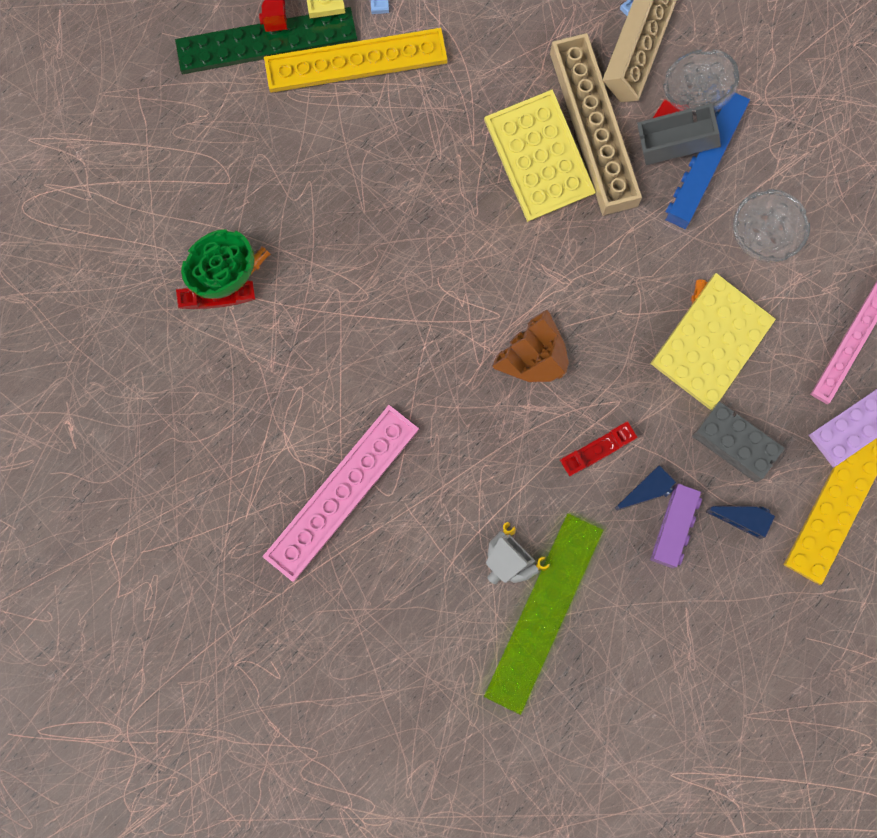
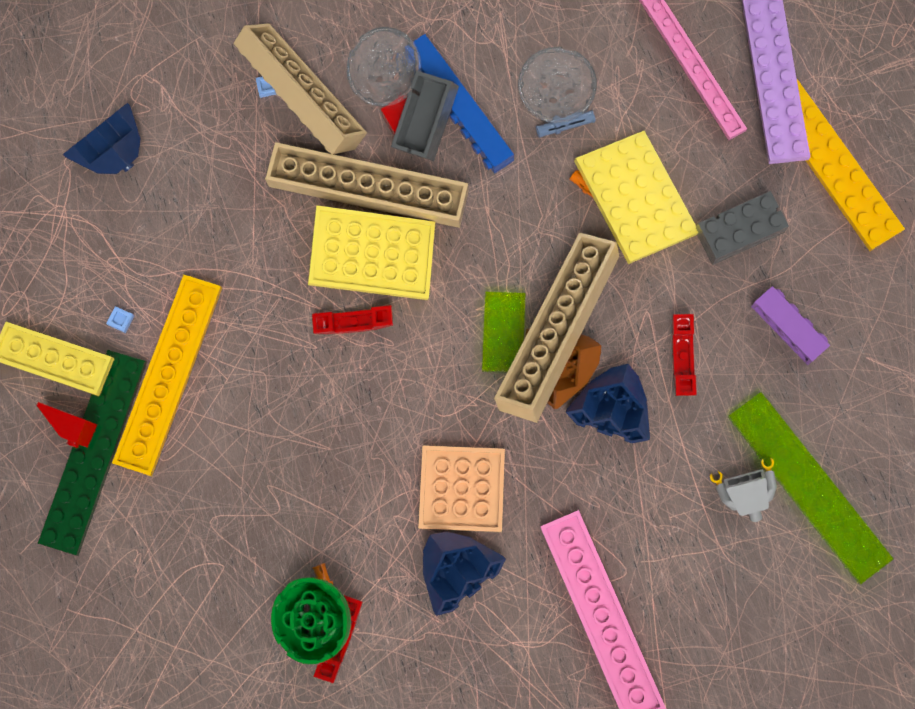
camera: 55 degrees left, 0 degrees up
(319, 356) = (456, 568): none -> dark blue brick
(386, 328) = (461, 488): none -> light nougat plate
(475, 173) = (352, 321): none -> red slope
(522, 413) = (614, 405): none -> dark blue brick
(534, 294) = (502, 330): none -> clear neon green plate
(560, 327) = (557, 327): none -> tan brick
(651, 488) = (744, 327): dark blue slope -> none
(727, 239) = (551, 128): none -> sand blue pin
(751, 520) = (817, 256): dark blue slope -> none

